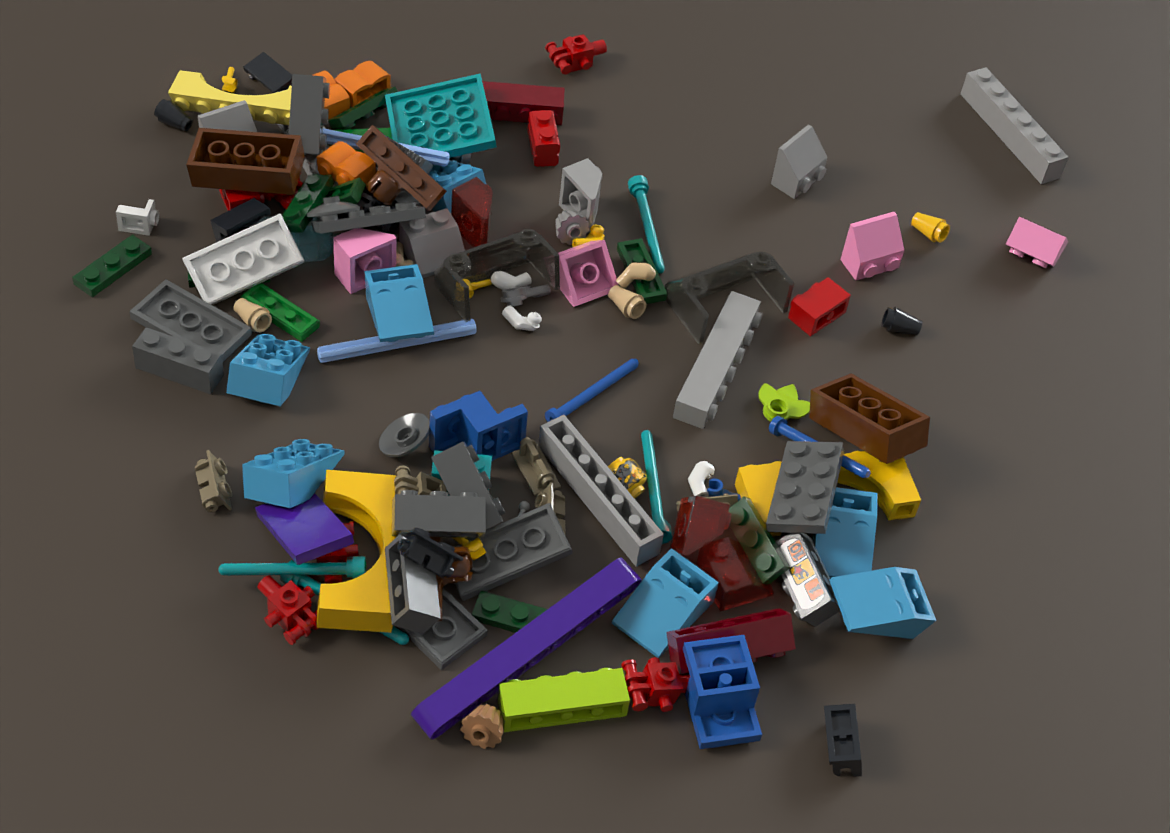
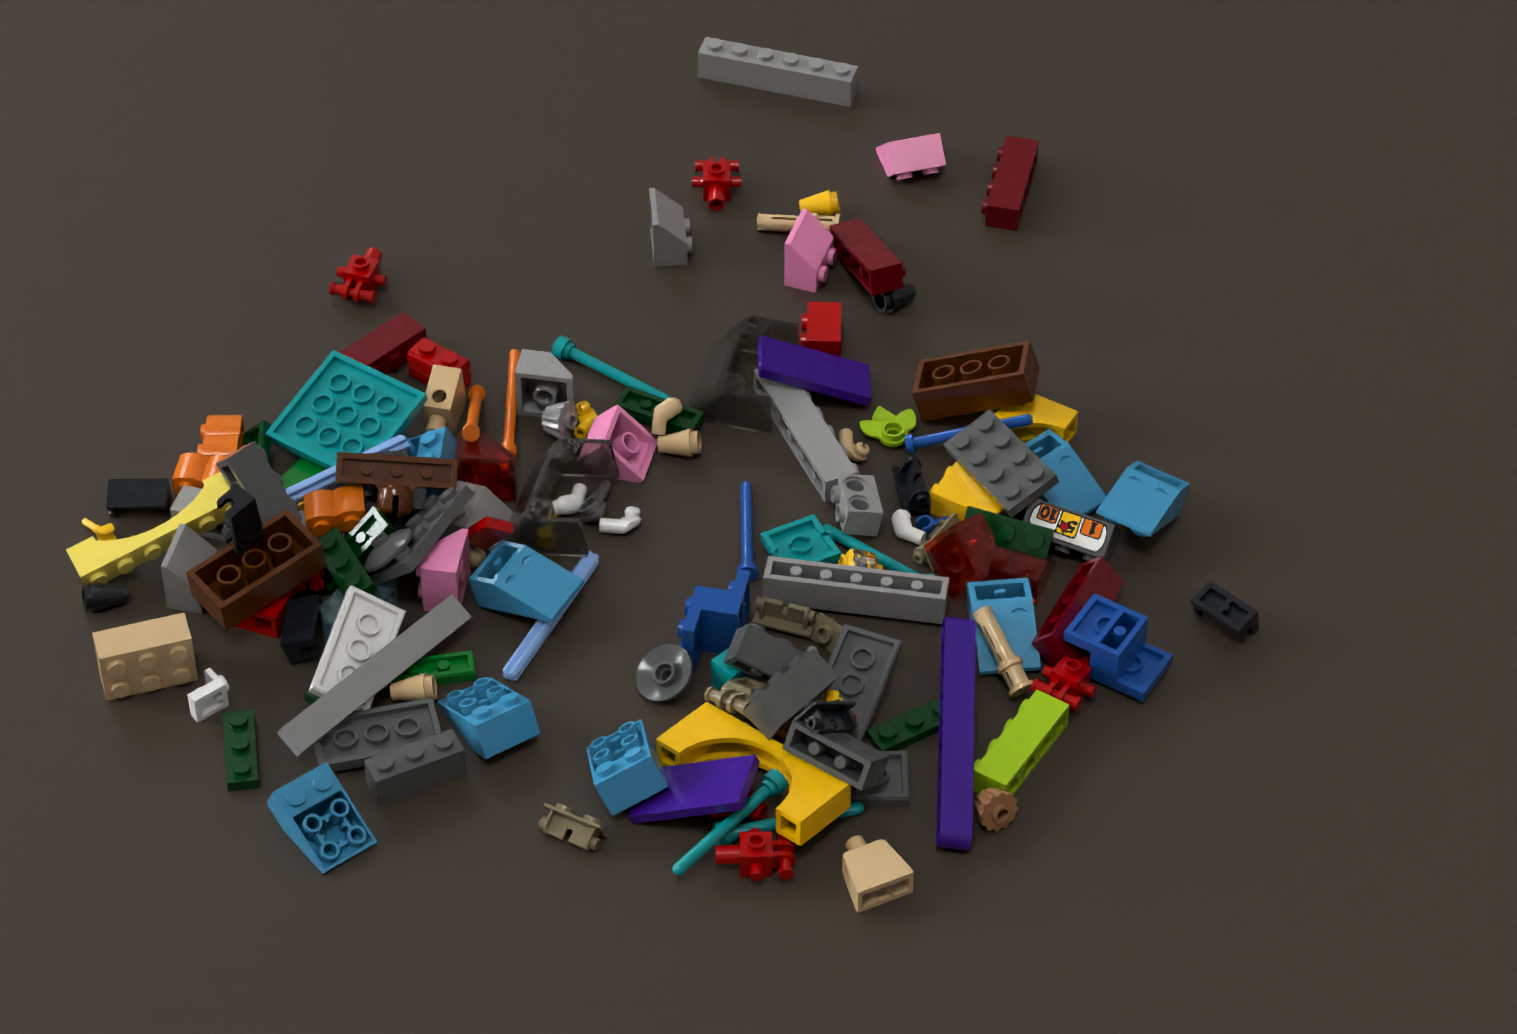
camera: 40 degrees left, 5 degrees down
(85, 343) = (321, 818): none -> dark azure slope
(130, 163) = (145, 656): none -> tan brick
(233, 283) = (373, 675): none -> light grey tile
(249, 115) = (242, 518): none -> black hinge
(341, 693) = (874, 873): none -> tan torso
(409, 250) = (489, 532): none -> red tile
(477, 179) = (471, 430): none -> orange bar
(513, 158) = (442, 409): none -> tan torso
(518, 219) = (511, 405): none -> orange bar
(611, 429) = (801, 540): none -> teal plate
(631, 632) = (1008, 663): none -> tan pin
(681, 434) = (857, 504): none -> light grey brick
(735, 395) = (855, 451): none -> tan arm
(738, 454) = (911, 486): none -> black hinge
(771, 323) = (813, 370): none -> dark purple tile
(880, 160) = (716, 180): none -> red piece
(909, 280) = (867, 257): none -> dark red brick
(910, 235) = (785, 223): none -> tan pin
(1087, 312) = (1011, 183): none -> dark red brick

